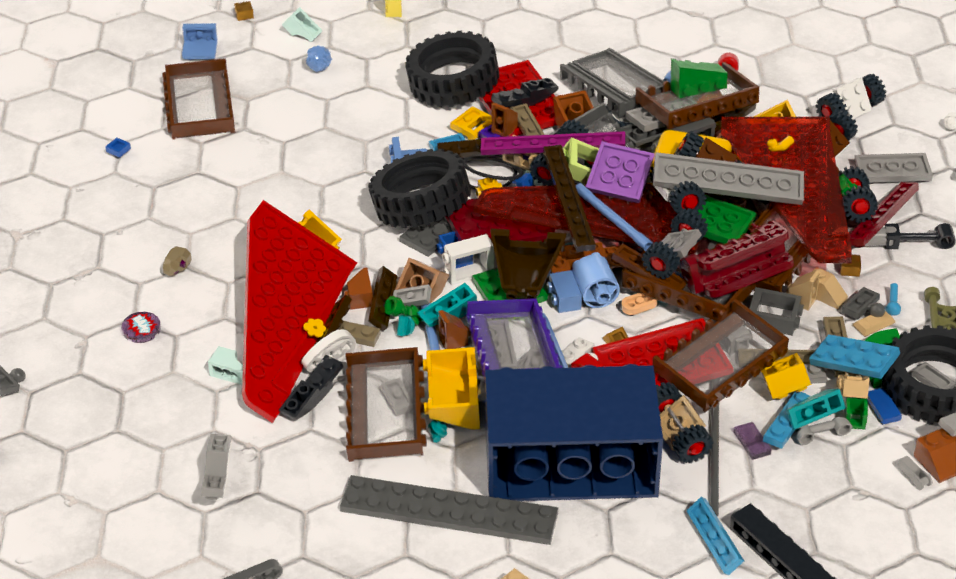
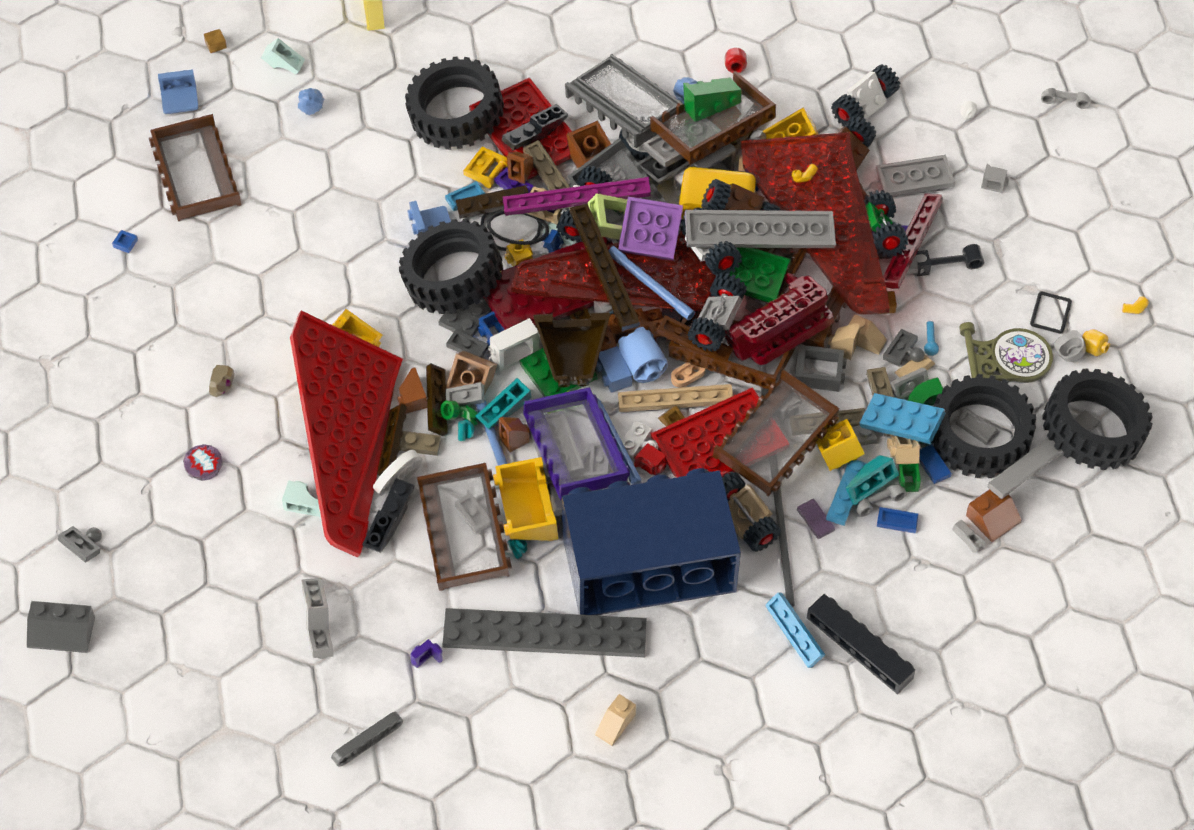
camera: 10 degrees left, 15 degrees up
(315, 327) = (380, 442): yellow plant -> none
(319, 511) = (424, 652): none -> dark purple bracket
(423, 255) = (462, 342): none -> dark grey plate
(613, 320) = (672, 397): none -> tan plate
(839, 451) = (897, 520): none -> blue tile
(863, 331) = (905, 385): none -> light grey plate

